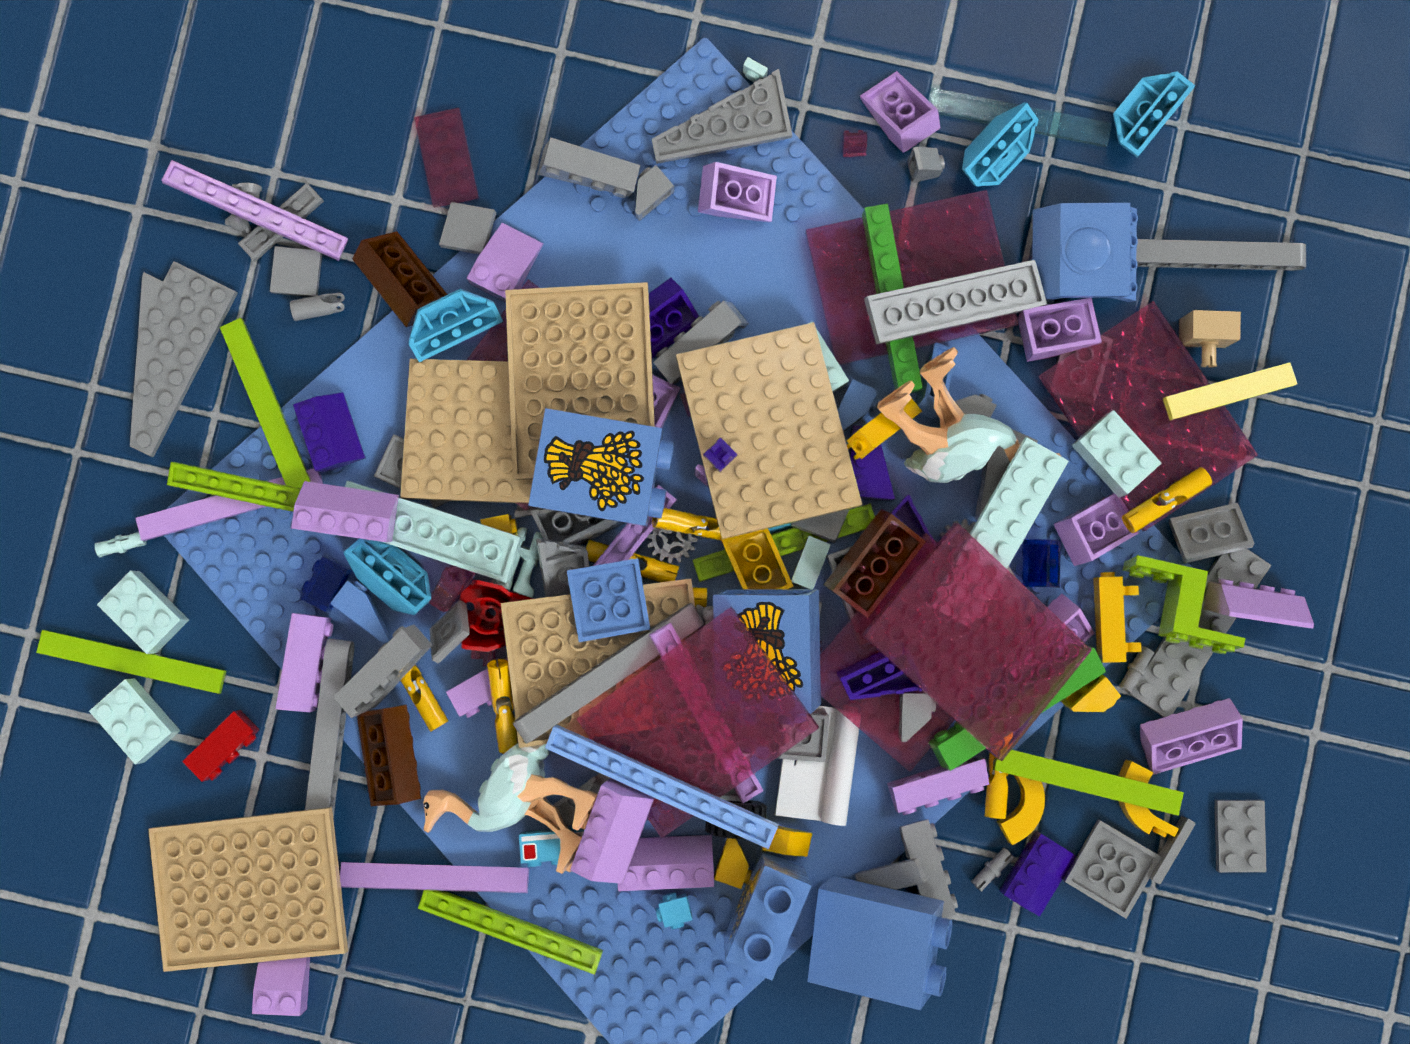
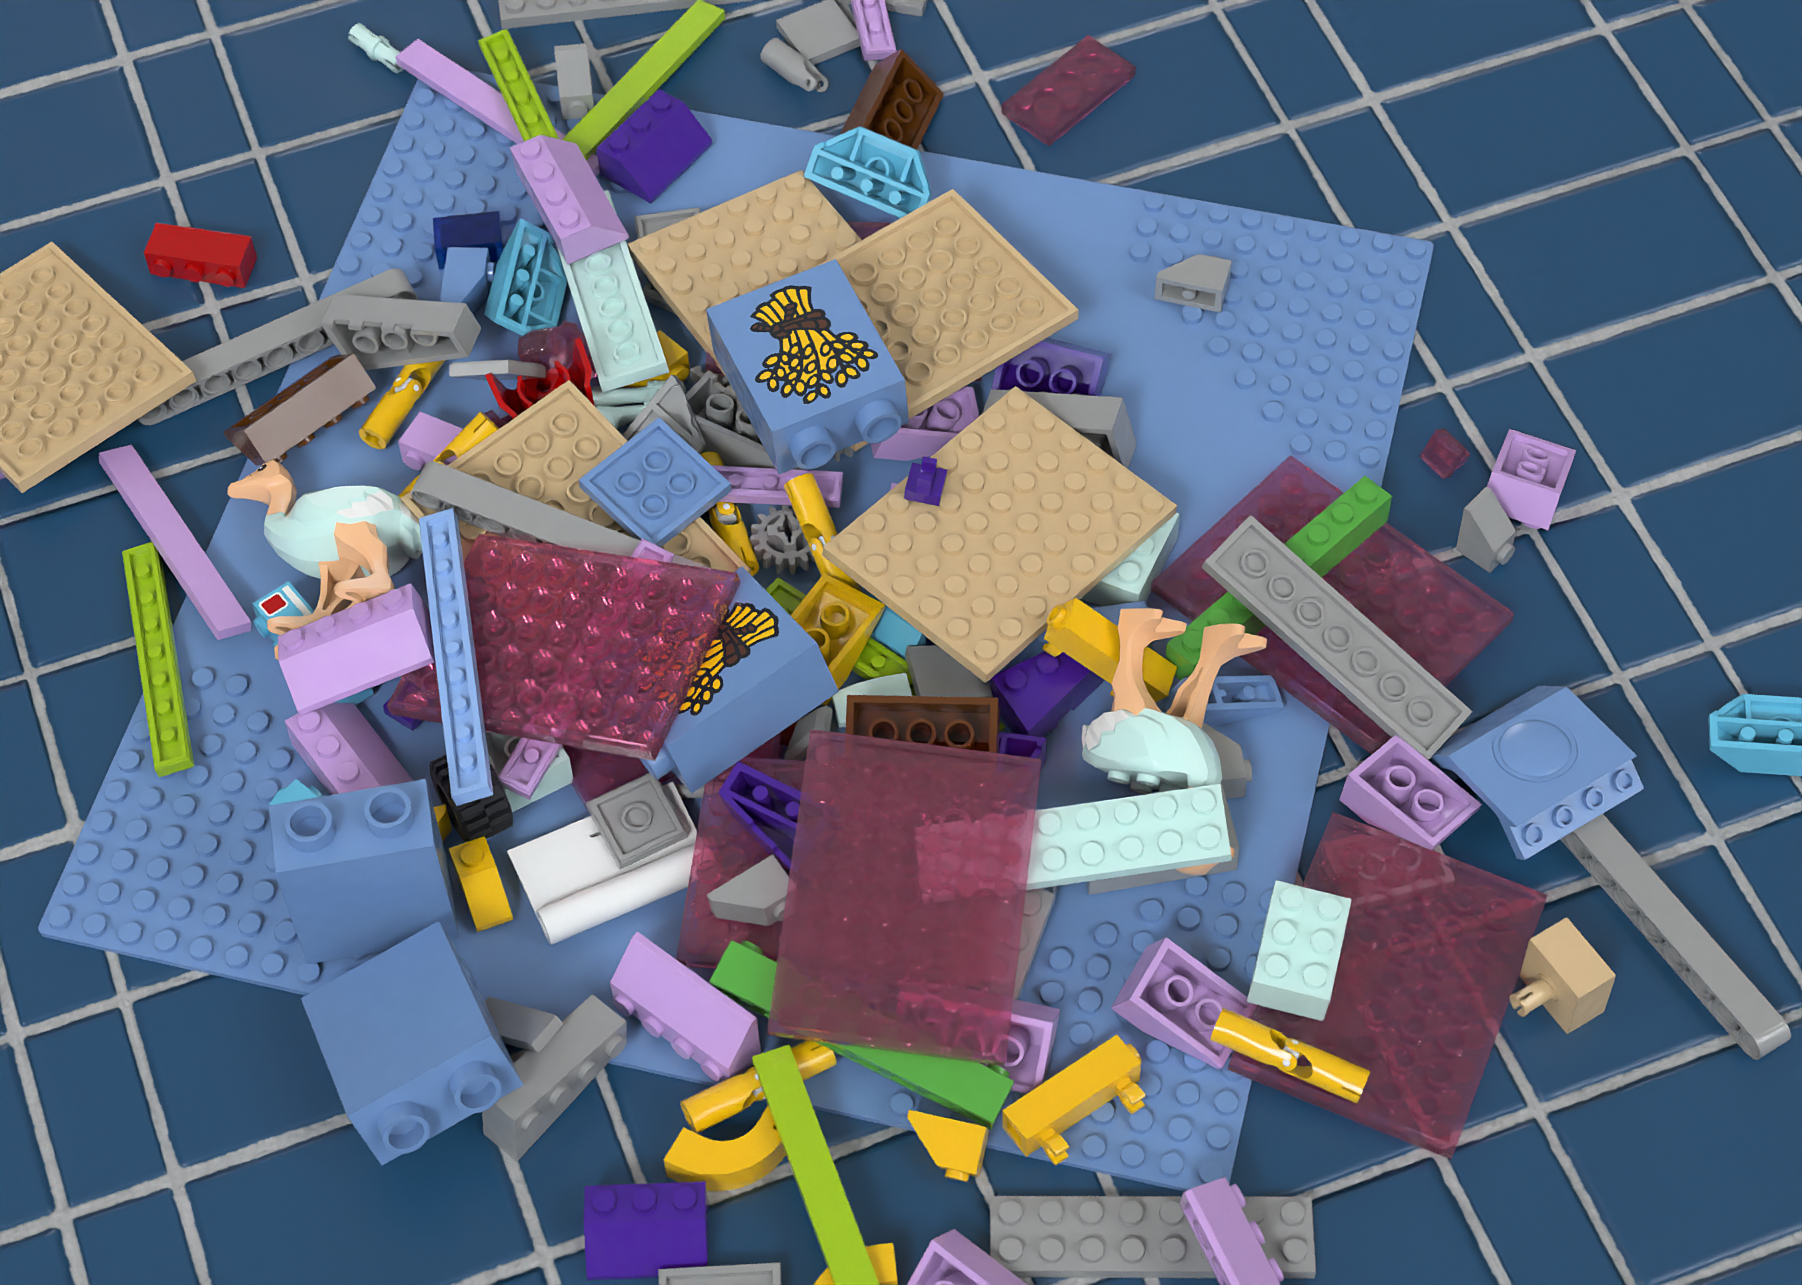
camera: 60 degrees right, 30 degrees down
(131, 661) = (246, 132): lime tile -> none
(134, 721) = (175, 163): light aqua brick -> none
(143, 612) = (311, 104): light aqua brick -> none
(248, 449) = (574, 80): none -> light grey slope
(303, 662) = (356, 253): lavender slope -> none
(467, 228) = (1002, 147): light grey tile -> none
(504, 262) = (1000, 193): lavender slope -> none
(588, 168) = (1168, 200): light grey wedge -> none
(736, 192) = (1273, 364): lavender slope -> none
(738, 121) = (1352, 315): light grey wing -> none
(754, 70) = (1437, 306): light aqua plate -> none
(992, 869) = (611, 1169): light grey pin -> none
(1000, 146) = (1580, 604): medium azure wedge -> none
(1041, 563) = (1081, 959): clear blue brick -> none
(1049, 124) = (1642, 610): clear light blue tile -> none
(1136, 669) = (1030, 1184): light grey pin -> none
(1182, 604) = (1161, 1160): lime bracket -> none
(1211, 532) = (1295, 1157): light grey plate -> none
(1229, 391) = (1510, 1060): light yellow tile -> none

